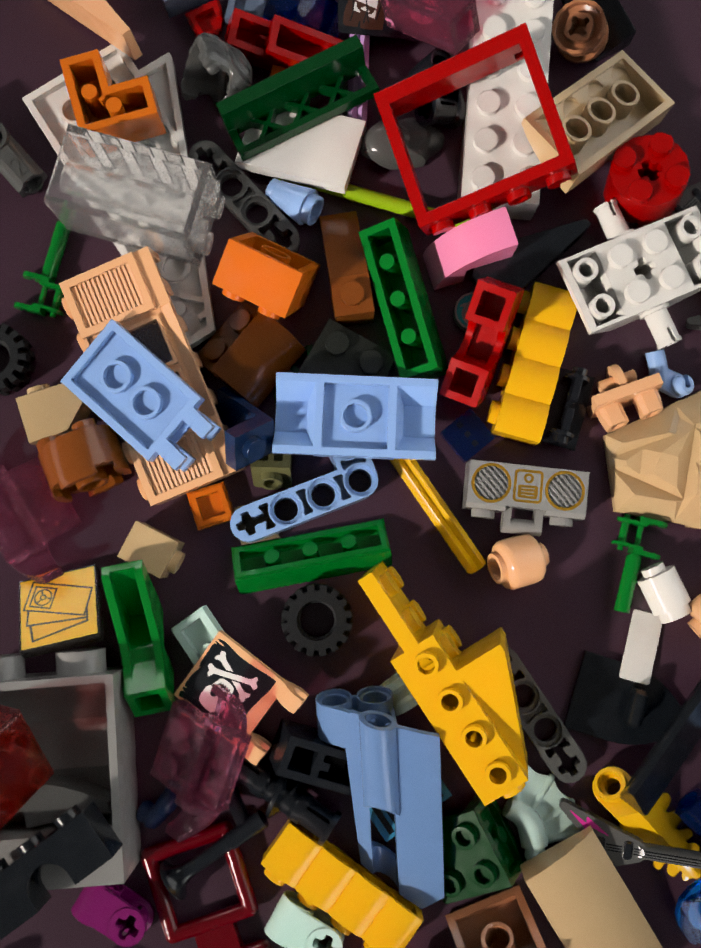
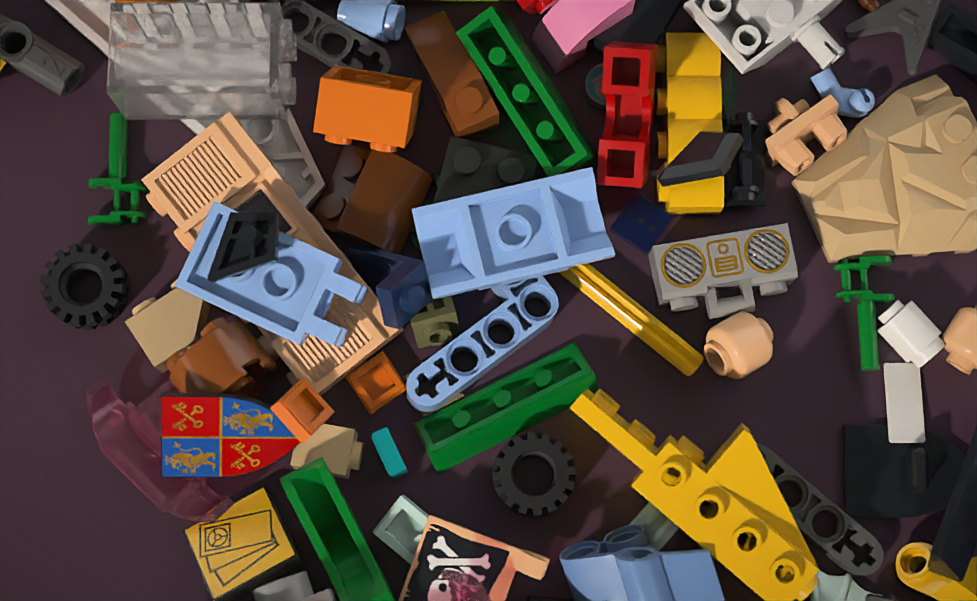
camera: 15 degrees left, 5 degrees down
(64, 516) = (219, 435): none -> shield
(125, 364) = (246, 244): none -> black piece
(137, 515) = (302, 410): none -> orange tile
(203, 568) = (389, 453): none -> teal tile
(534, 398) = (703, 158): none -> black piece
(573, 348) = (730, 94): none -> dark green sticker

